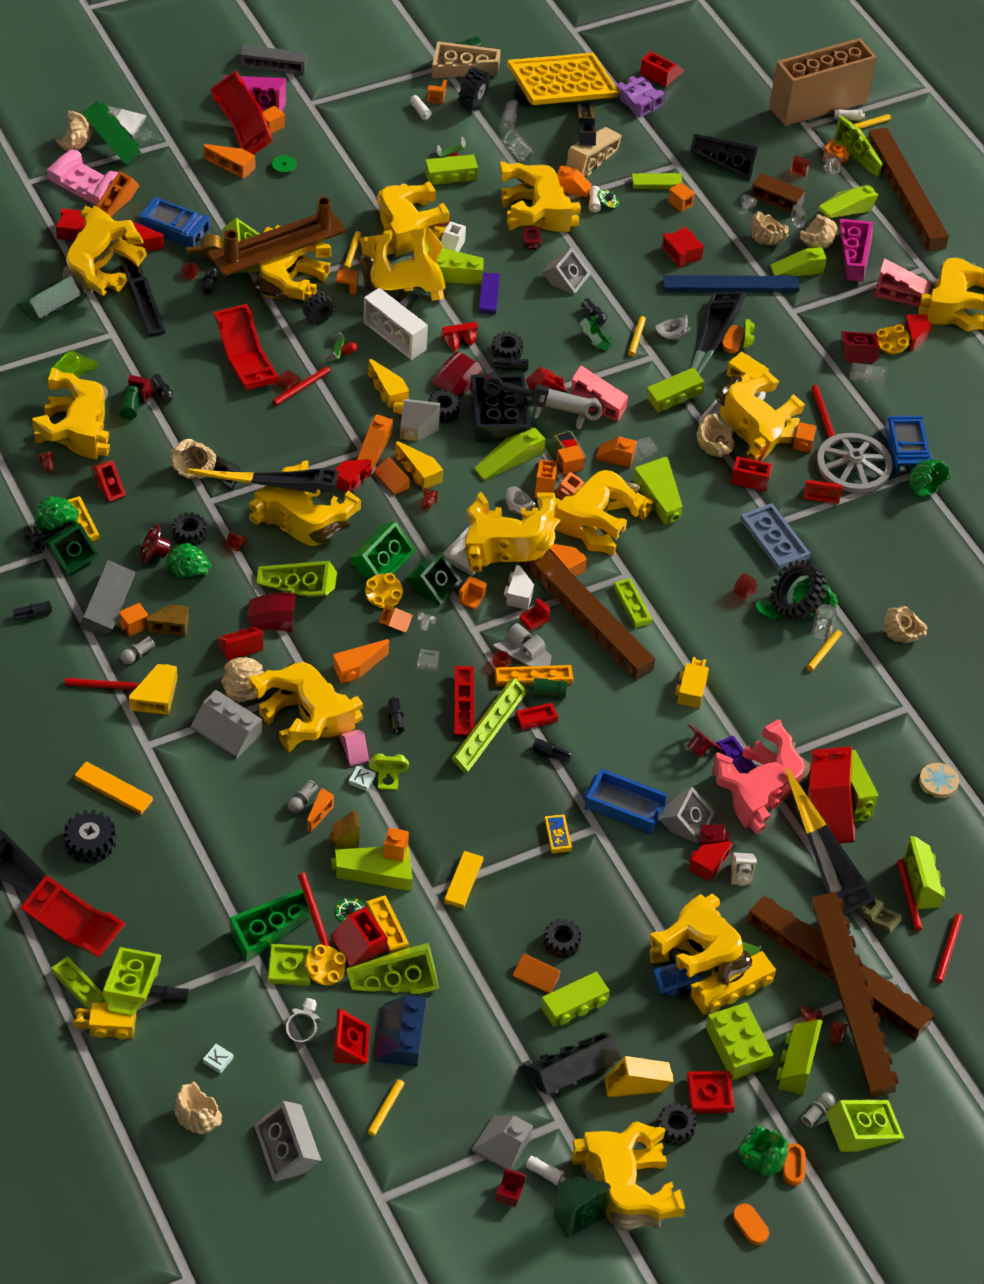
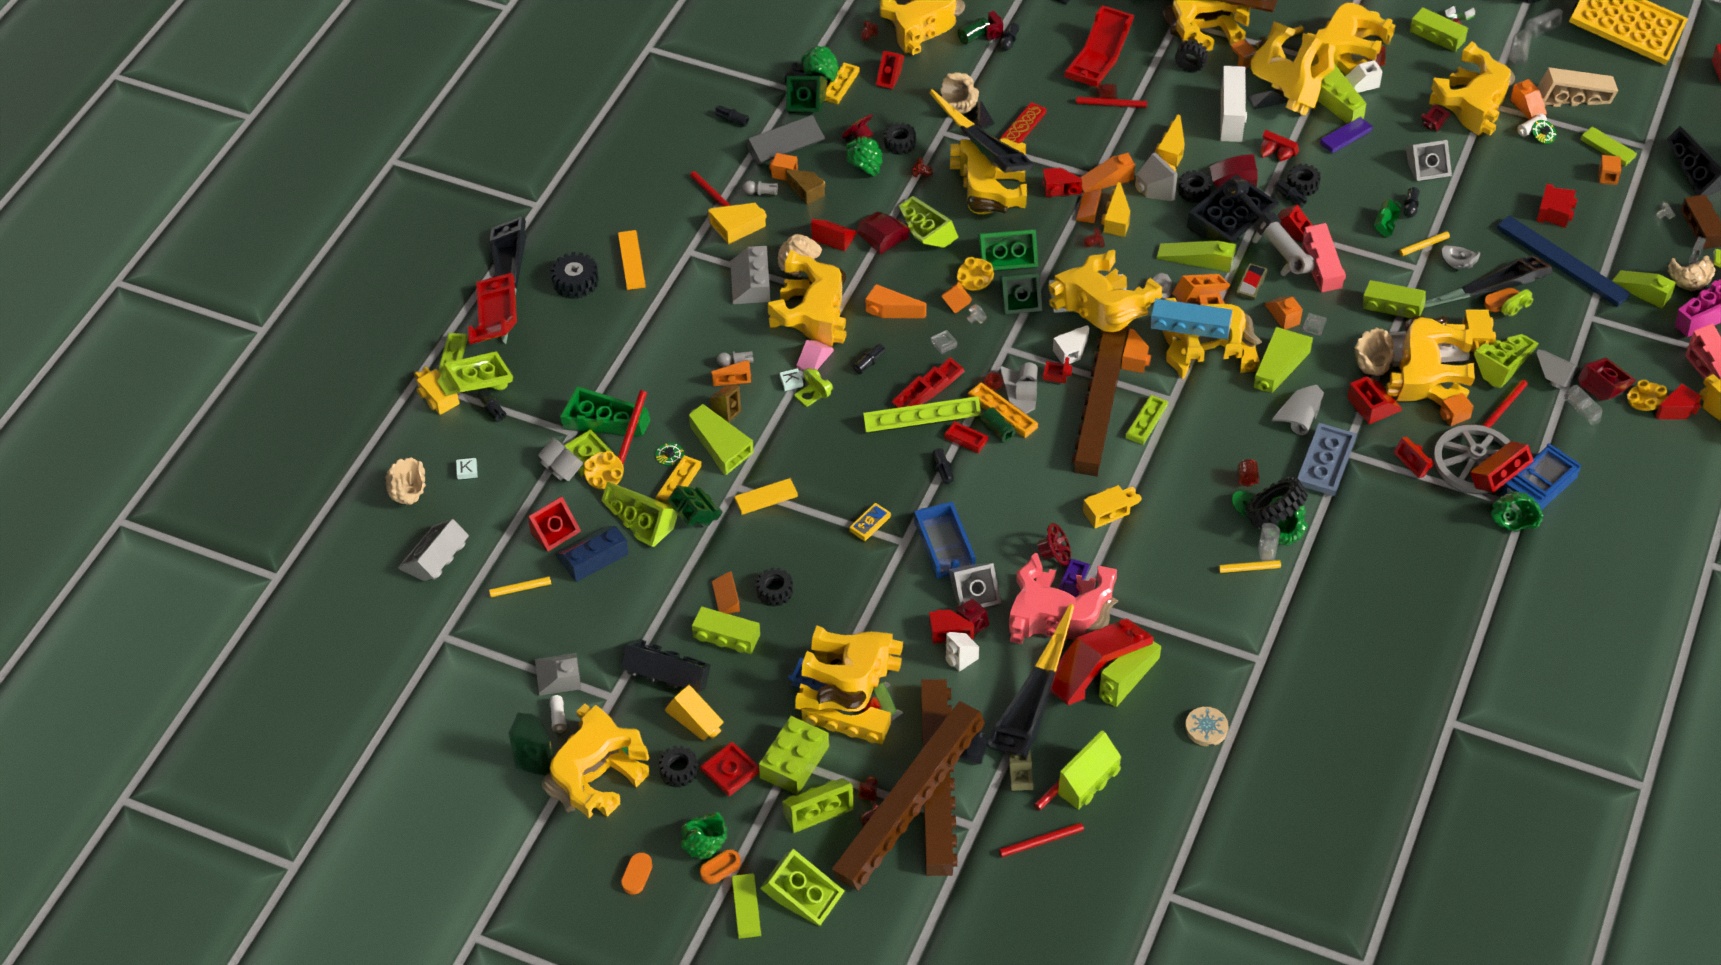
camera: 55 degrees right, 0 degrees up
(263, 449) = (1025, 123): none -> red tile
(286, 985) = (560, 459): none -> light grey brick
(309, 1006) = (550, 490): white piece -> none
(346, 349) = (1177, 98): piece -> none
(359, 938) = (645, 471): red slope -> none
(396, 844) = (738, 429): orange brick -> none
(437, 926) = (694, 505): none -> dark green hips
(472, 593) = (1034, 321): orange panel -> none
(511, 1187) = (519, 702): dark red bracket -> none
(570, 459) = (1237, 288): orange panel -> none
(586, 124) = (1595, 61): black slope -> none
(594, 502) = (1191, 319): none -> dark azure brick
(640, 96) = (1684, 74): medium lavender hips -> none
(718, 513) = (1301, 409): none -> light grey panel
(767, 230) = (1649, 239): tan hair -> none
(790, 377) = (1503, 359): none -> lime wedge
(818, 1109) = (782, 848): light grey pin -> none
(826, 362) = (1556, 369): none -> light grey slope
(845, 1172) = (746, 906): none -> lime tile
(885, 454) = (1502, 466): none -> red brick
(908, 630) = (1328, 596): tan hair -> none

